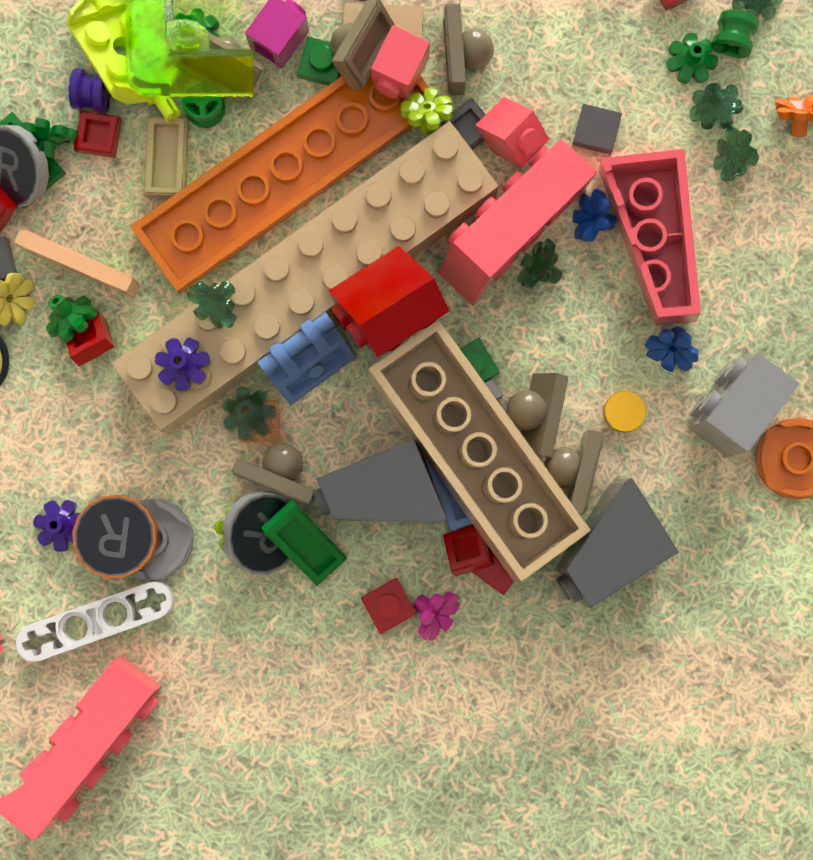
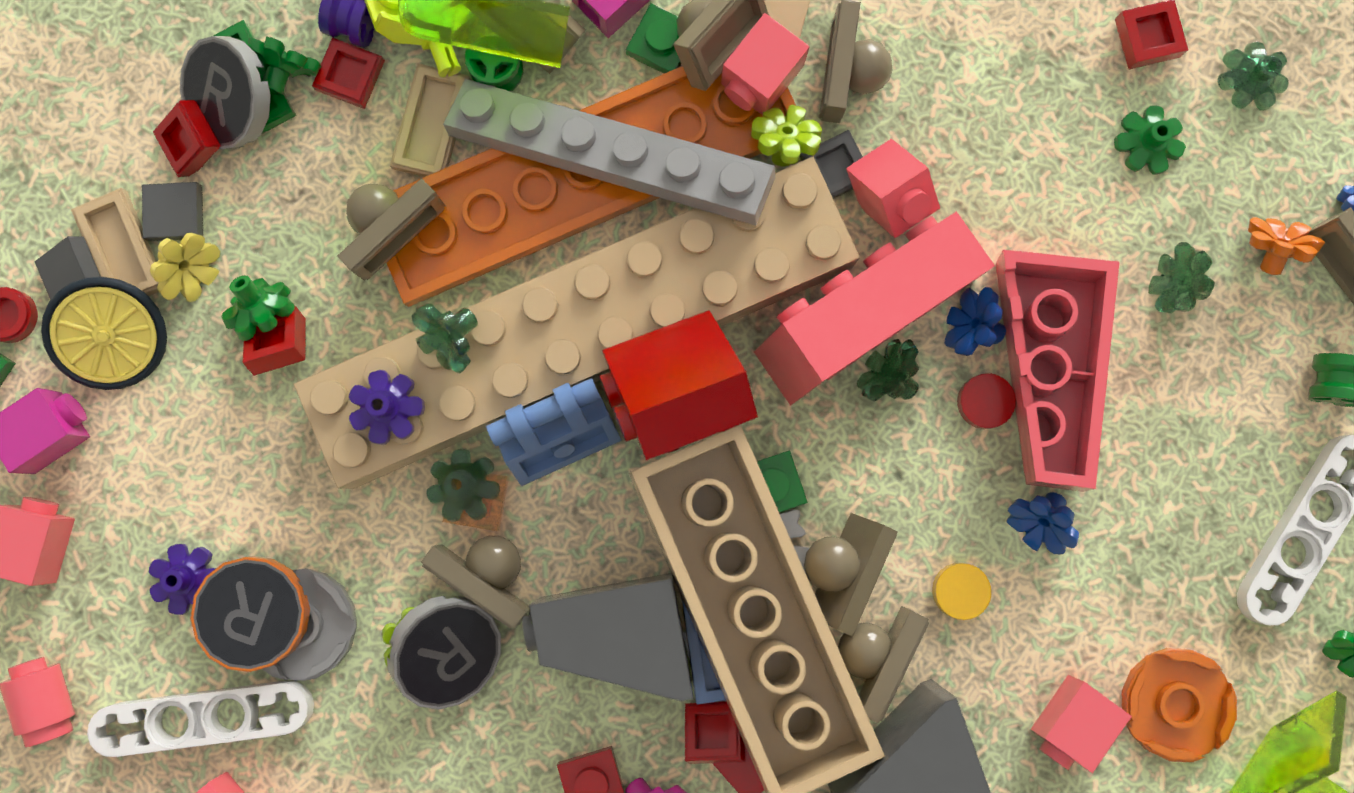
camera: 10 degrees right, 0 degrees up
(77, 263) = (282, 238): light nougat tile -> none
(152, 234) = (385, 223): none -> dark tan tile
(302, 148) = (611, 151): none -> light grey plate
(303, 542) = (497, 676): green tile -> none
(597, 129) = (1005, 206): dark grey tile -> none
(613, 272) = (986, 401): none -> red tile
(715, 105) = (1169, 209): clear green plant -> none
(727, 486) = (1079, 725): none -> coral brick
(735, 33) = (1216, 119): green wheel -> none
(742, 405) = (1124, 622): light grey brick -> none

